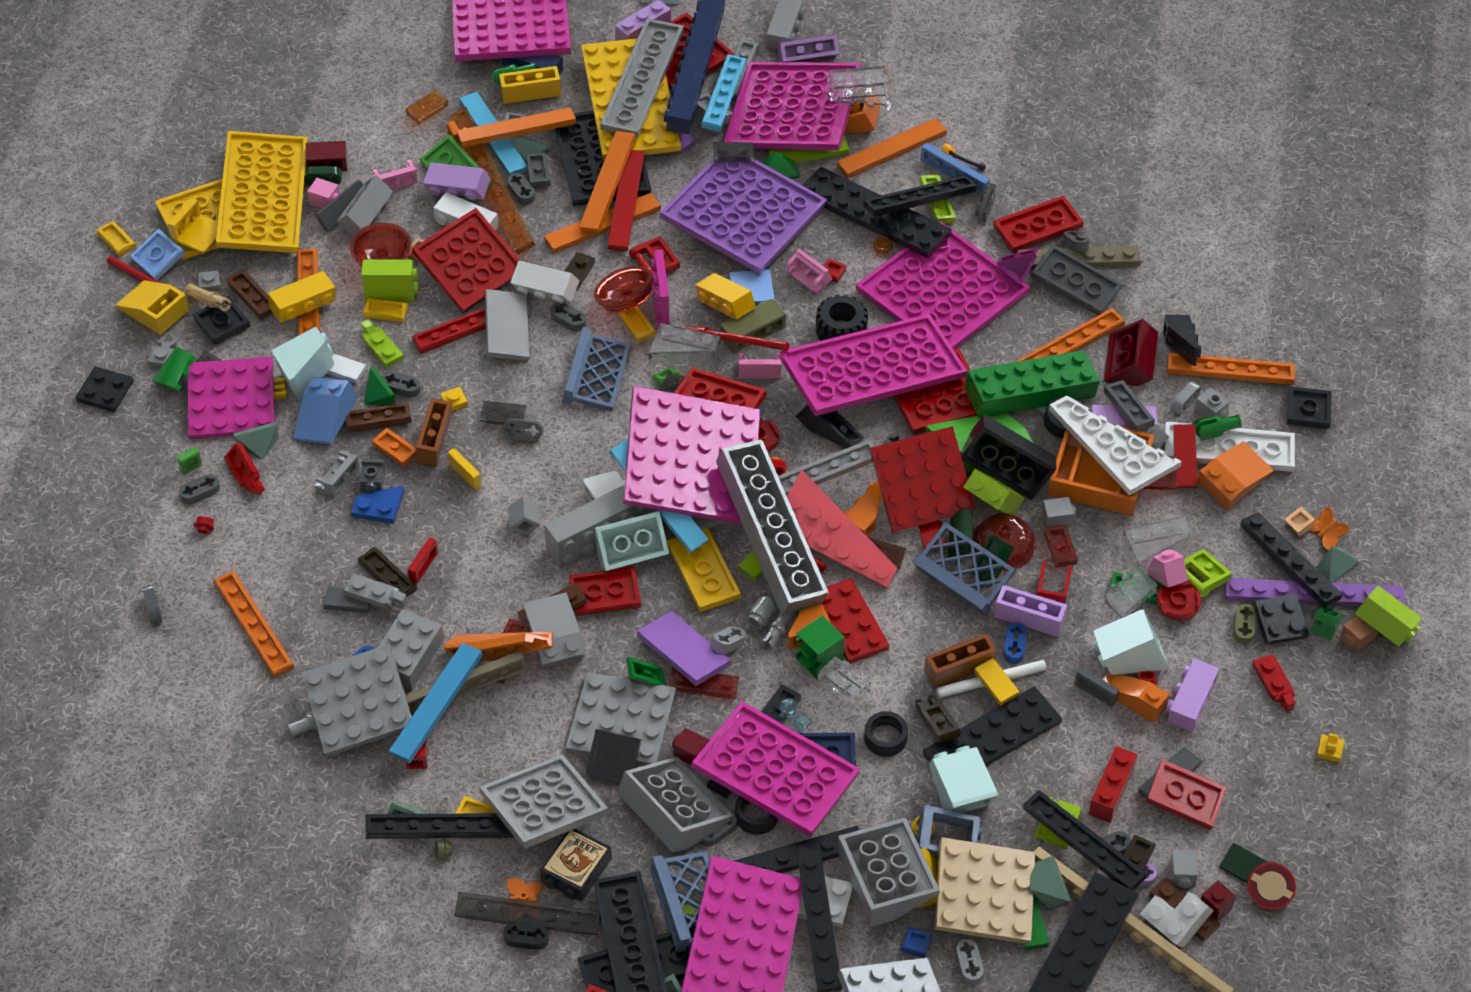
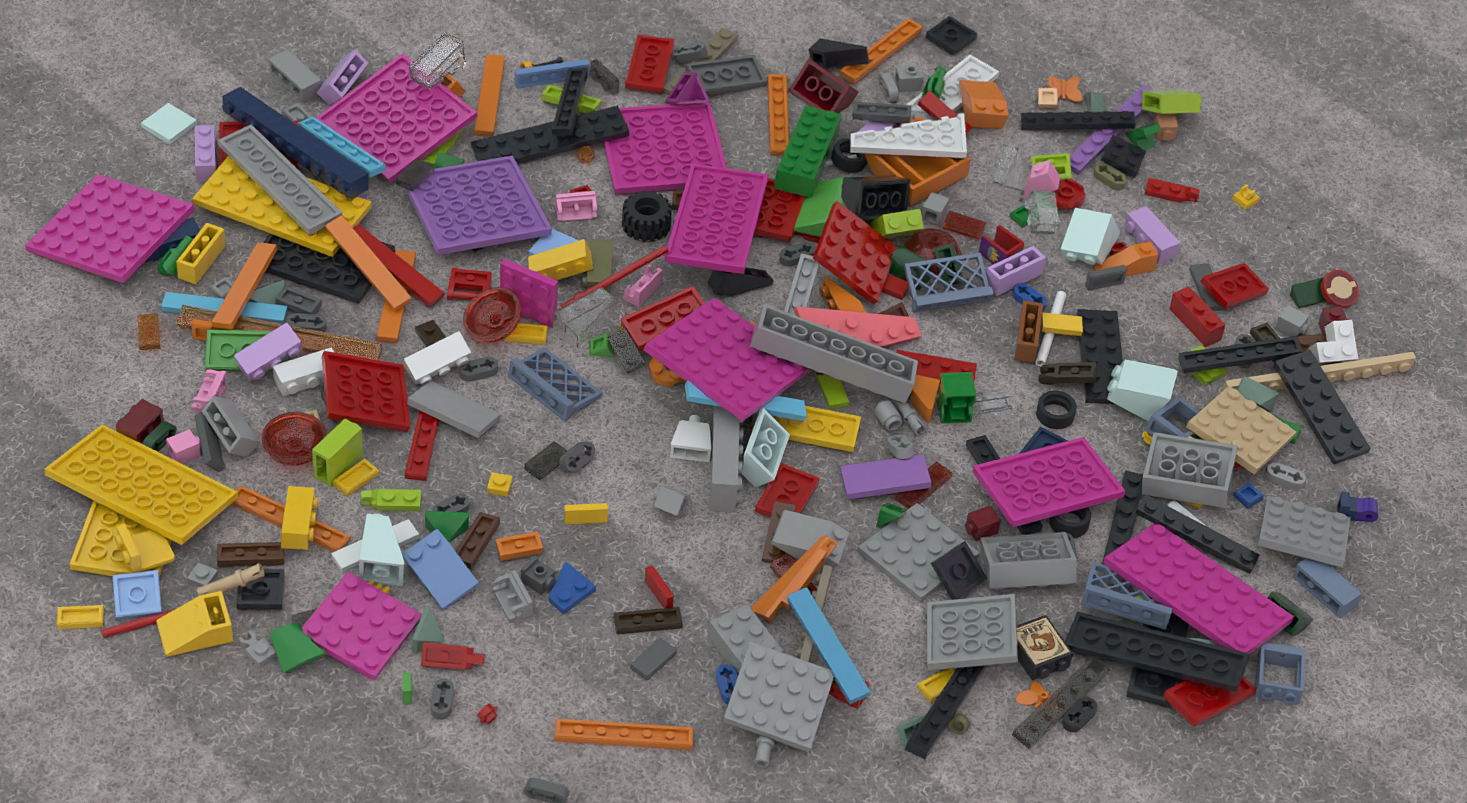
camera: 60 degrees left, 5 degrees down
(104, 389) = (259, 711): black plate -> none
(374, 592) = (667, 634): light grey hinge -> none
(433, 432) = (532, 510): dark orange brick -> none
(789, 708) = (997, 445): clear light blue arm -> none

